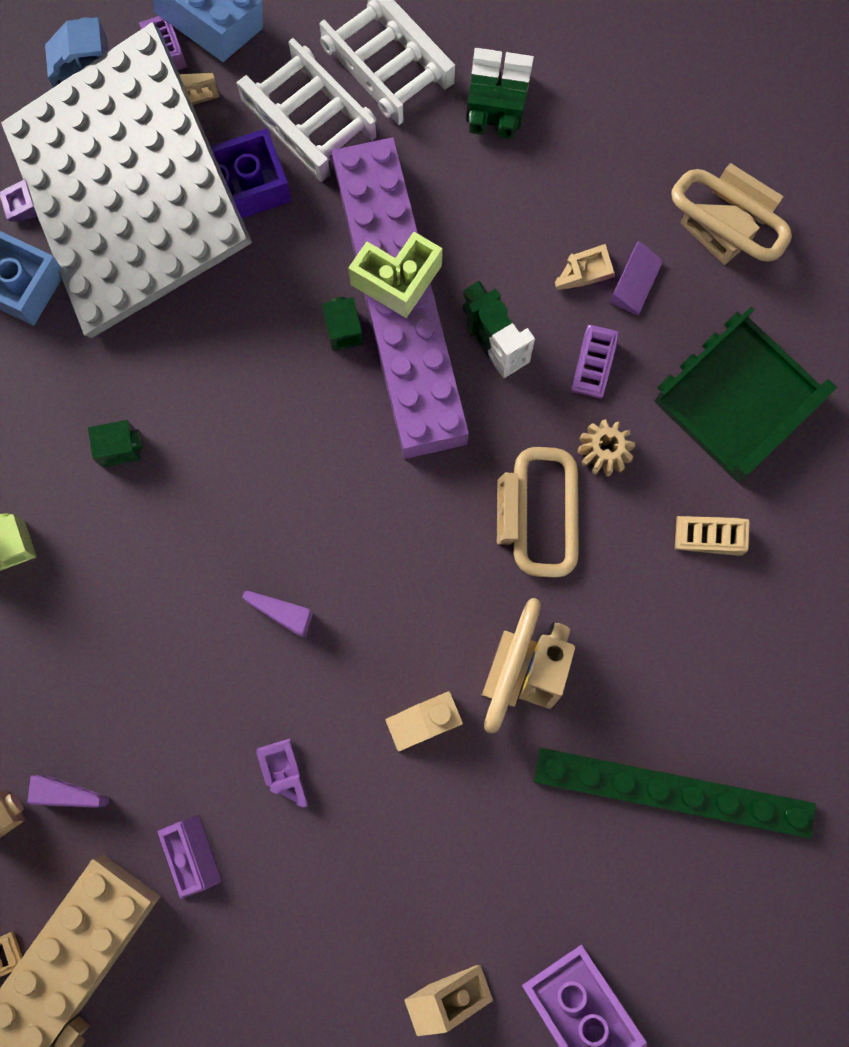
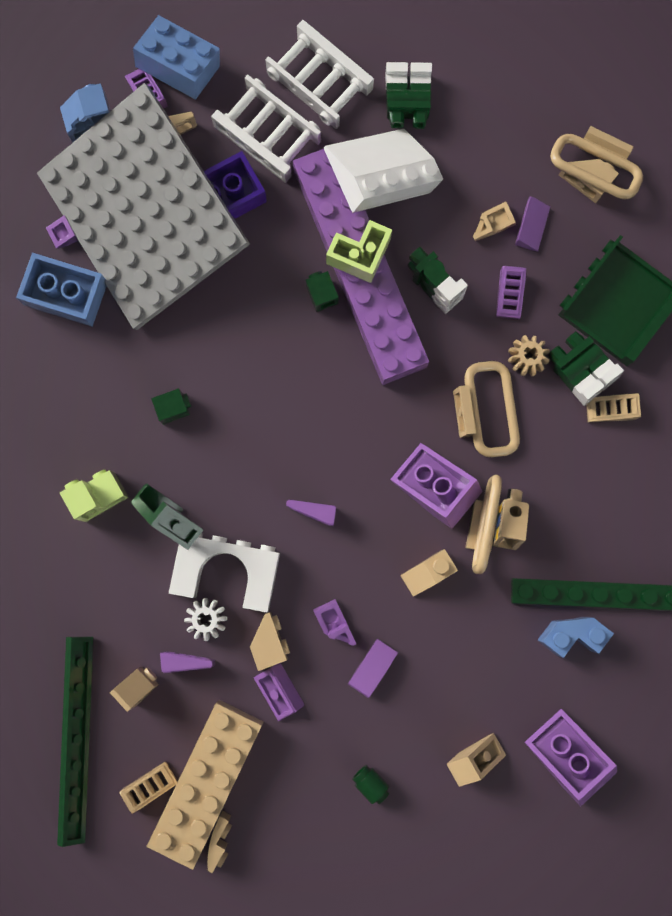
camera: 10 degrees left, 5 degrees up
(73, 587) = (166, 516): none -> panel
(109, 644) = (260, 566): none -> white arch
(119, 739) = (205, 628): none -> white gear
(183, 787) = (267, 645): none -> tan slope
(293, 1013) = (371, 785): none -> dark green brick
(324, 844) = (372, 668): none -> medium lavender slope
(447, 179) = (382, 169): none -> white slope
(455, 603) = (437, 485): none -> medium lavender slope
(599, 836) = (562, 635): none -> medium blue brick
(679, 474) = (584, 368): none -> dark green hips

